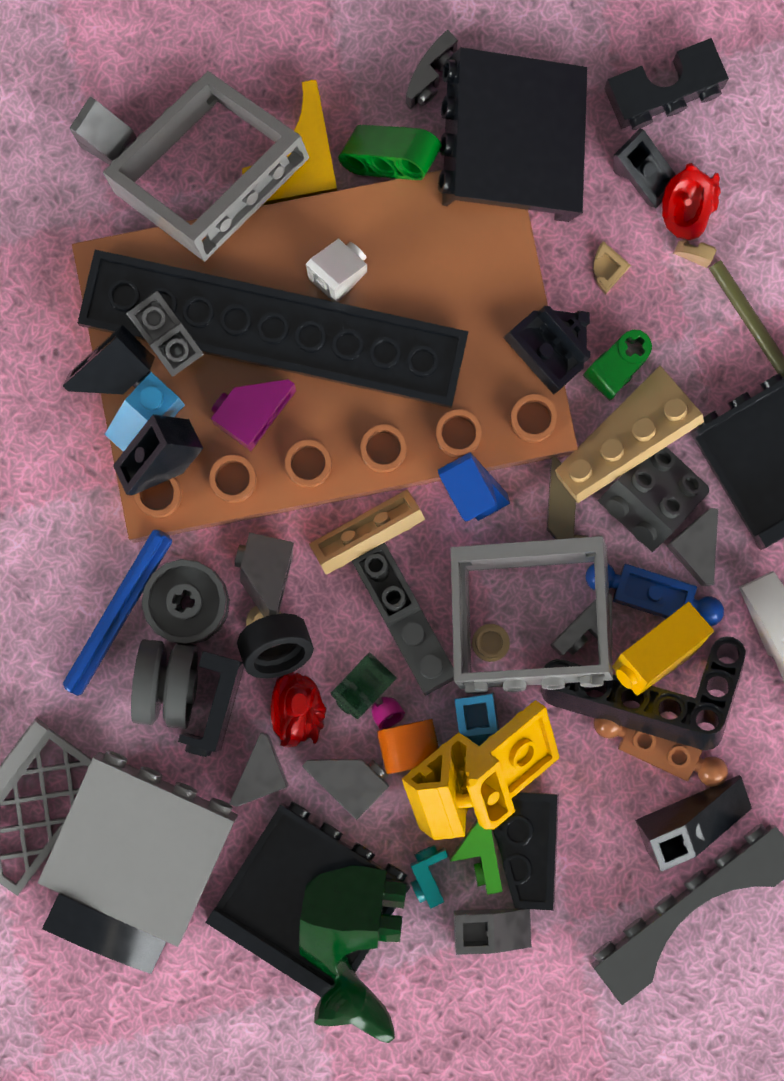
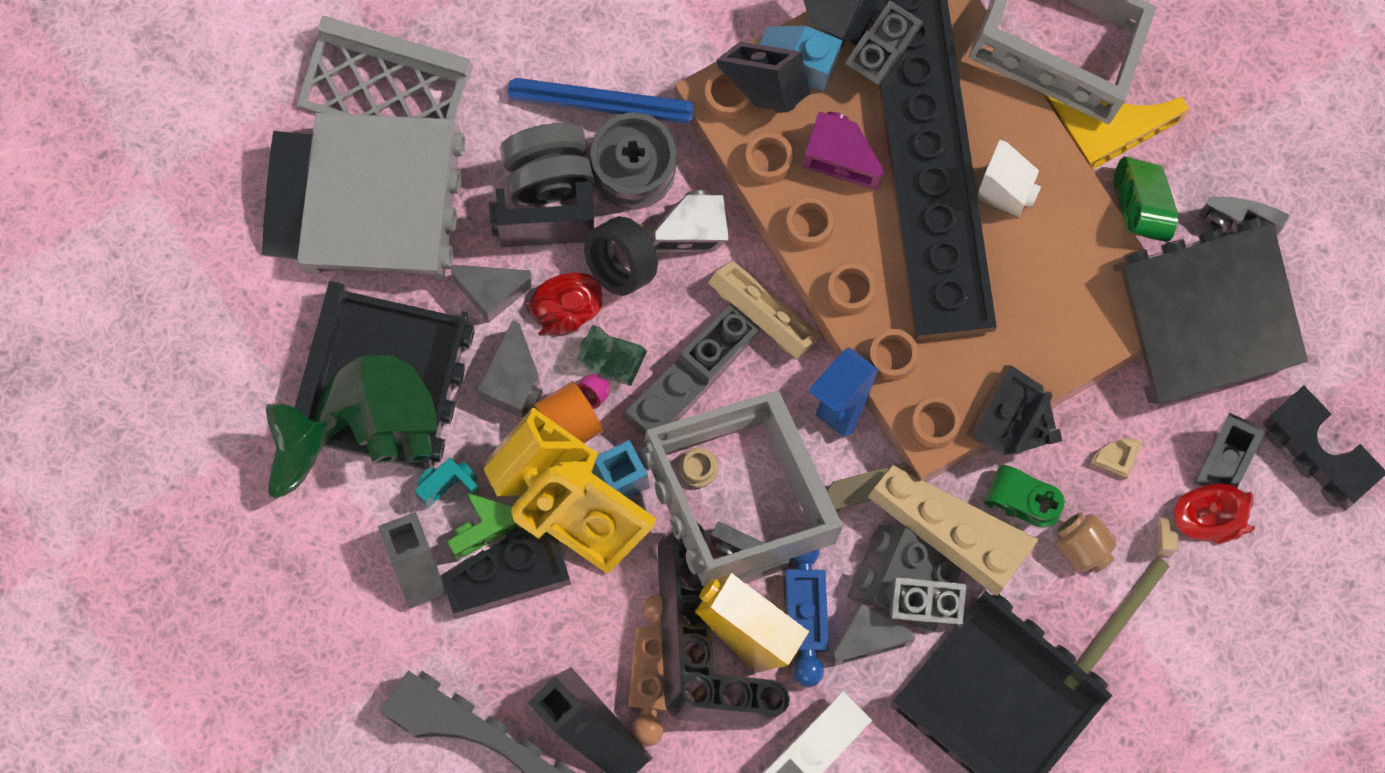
camera: 65 degrees right, 10 degrees down
(678, 325) = (1086, 542): none -> medium nougat head
(687, 484) = (927, 601): none -> flat silver slope

